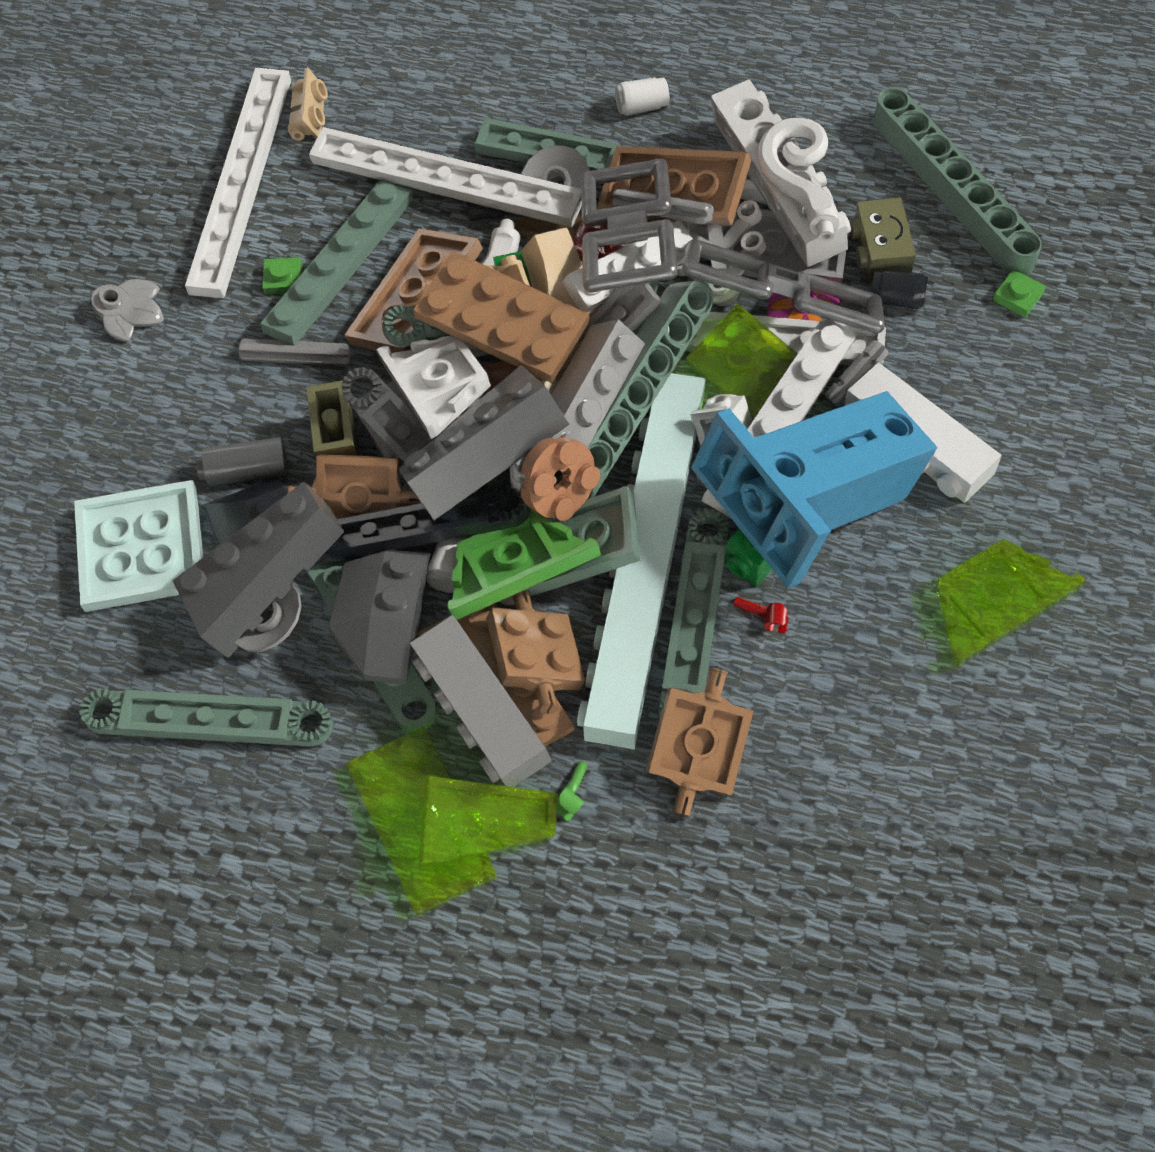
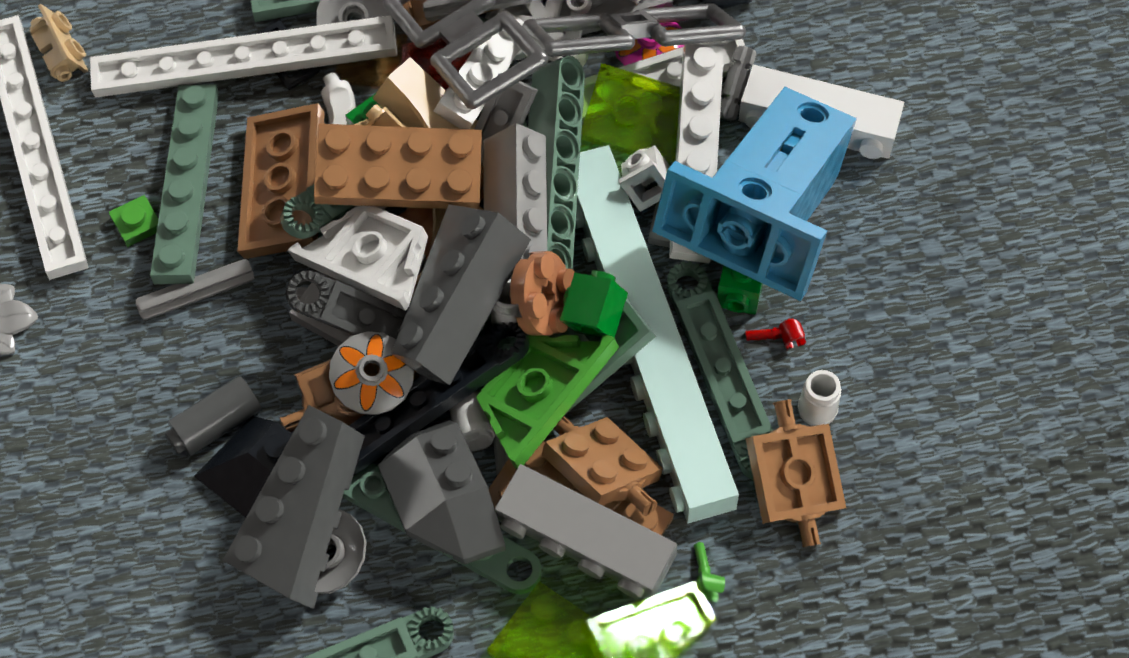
camera: 30 degrees left, 0 degrees up
(136, 544) = (155, 544): light aqua plate -> none
(332, 420) = (283, 339): olive brick -> none
(376, 500) = (363, 392): none -> light grey dish
(598, 507) = (593, 304): none -> green brick
(762, 686) = (820, 398): none -> white piece
(997, 596) = (965, 228): clear neon green wing -> none

